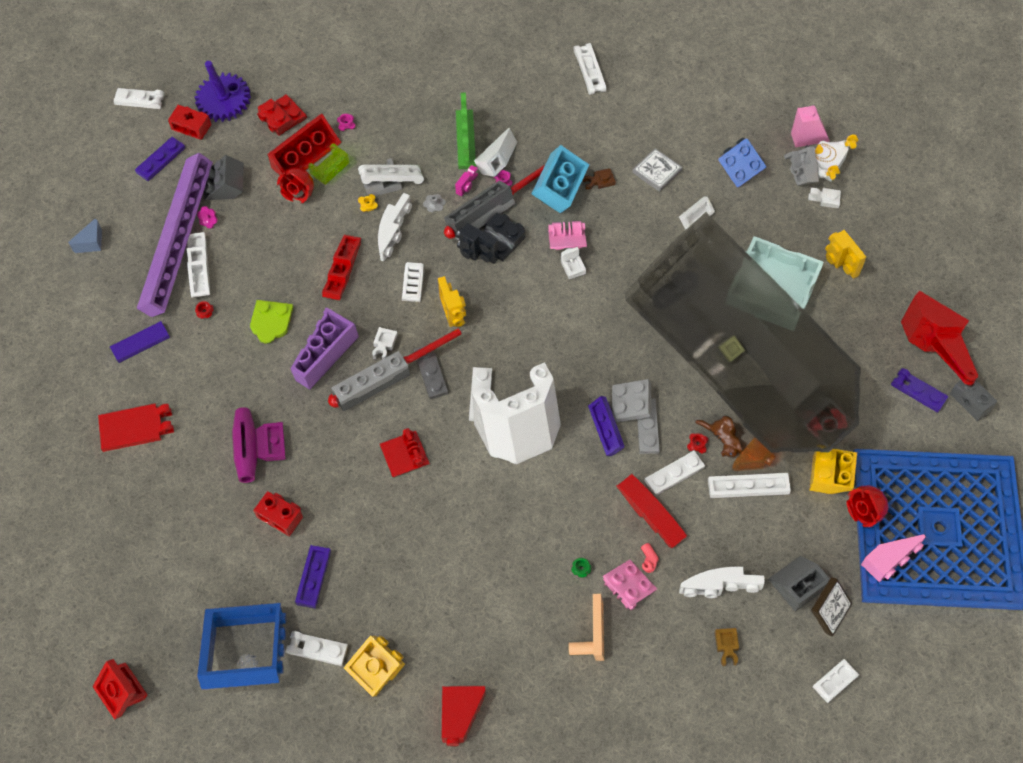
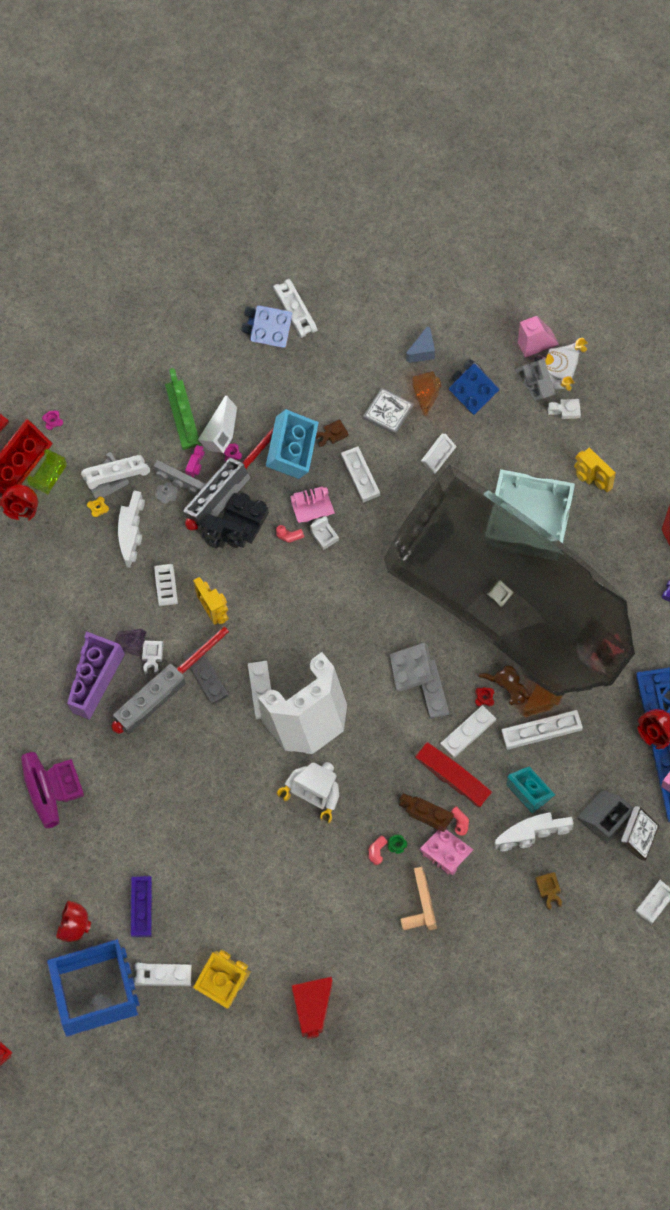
camera: 10 degrees left, 5 degrees up
(241, 578) = (73, 922): none -> red cylinder
(270, 320) = (30, 654): lime plate -> none
(278, 513) = (92, 851): red brick -> none
(341, 268) = (89, 583): red slope -> none
(368, 325) = (131, 640): none -> clear purple slope
(404, 453) = (200, 765): red hinge -> none
(446, 190) = (178, 478): none -> light grey plate
(511, 493) = (314, 785): none -> white torso
(538, 261) = (288, 536): none -> coral arm
(557, 569) = (374, 850): none -> coral arm
(561, 76) = (267, 325): none -> plate
(606, 426) = (392, 698): dark purple plate -> none
(617, 542) = (426, 812): none -> reddish brown hinge
(619, 219) = (360, 474): none -> white plate
(697, 157) = (427, 390): none -> clear orange slope
(700, 121) = (422, 348): none -> sand blue slope
(725, 540) = (529, 788): none -> teal slope
(833, 471) = (620, 700): yellow slope -> none

